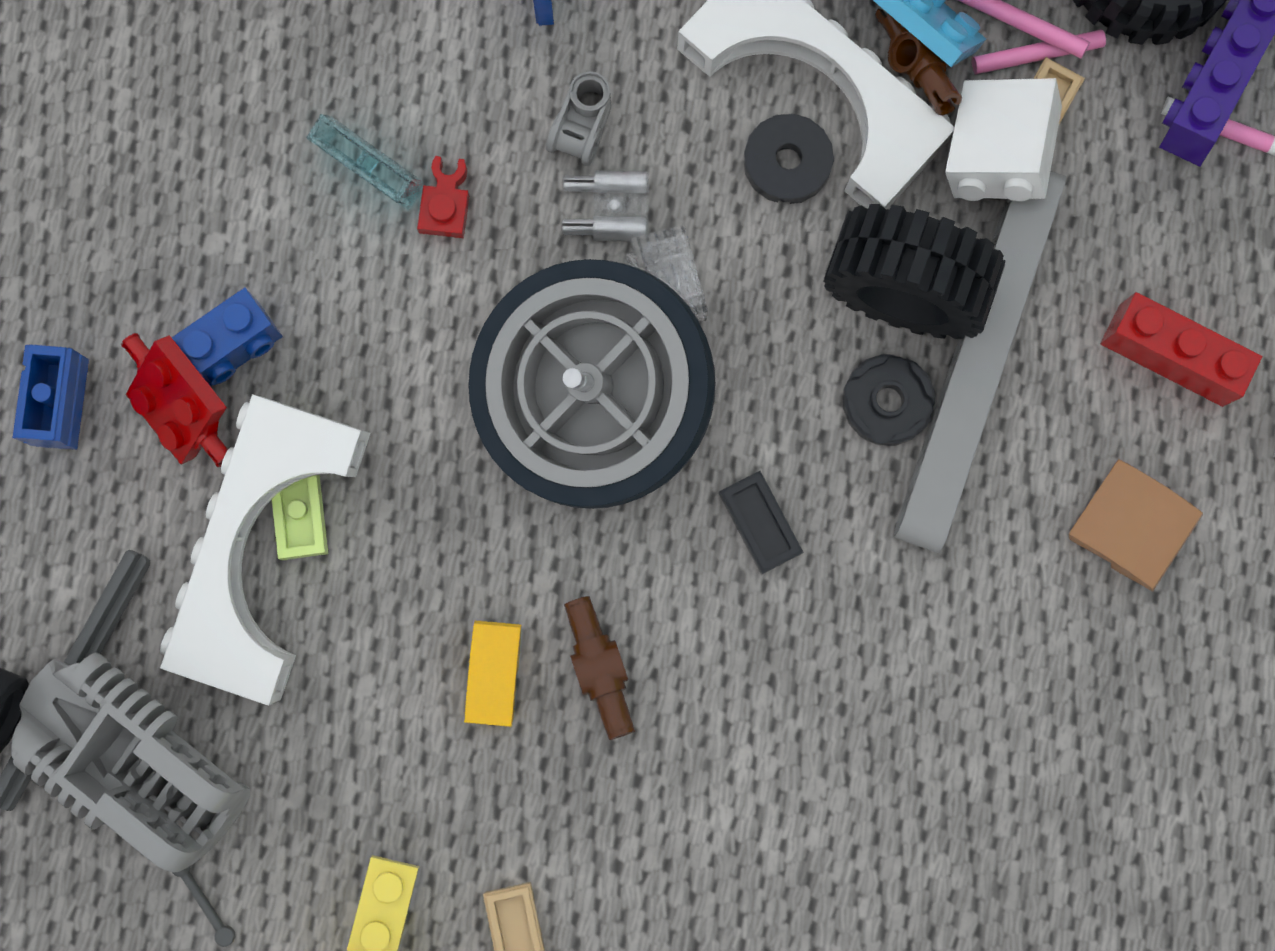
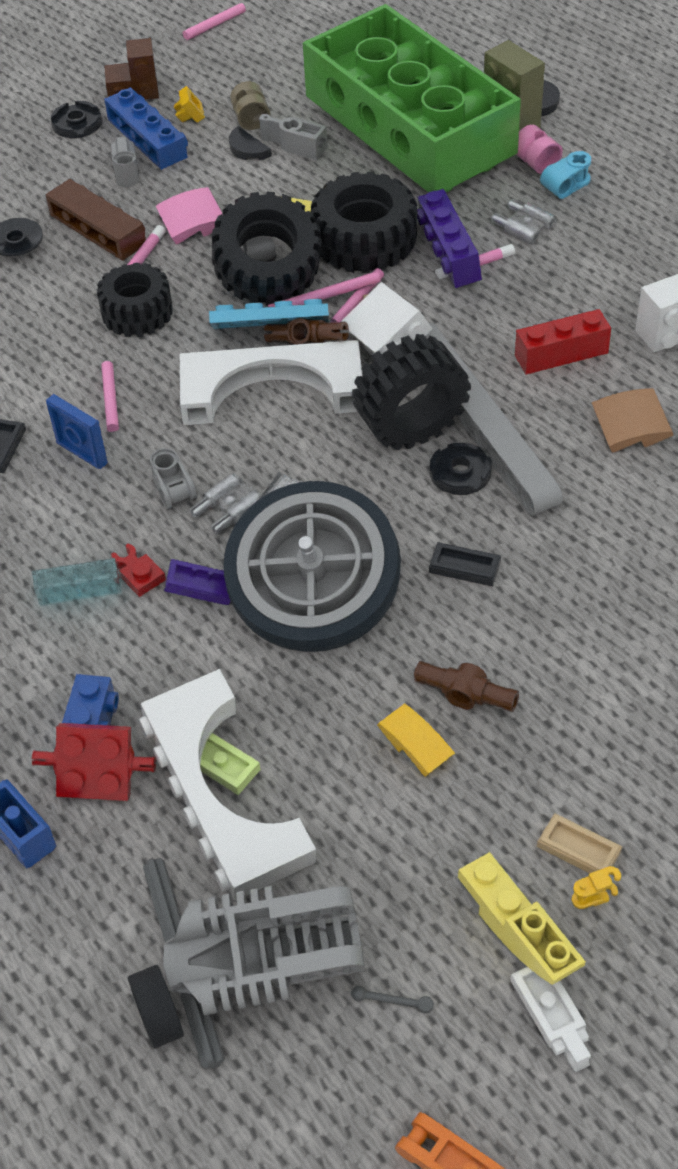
camera: 40 degrees left, 30 degrees down
(476, 274) = (197, 582): none -> dark purple plate
(792, 133) = (288, 407): black tile -> none

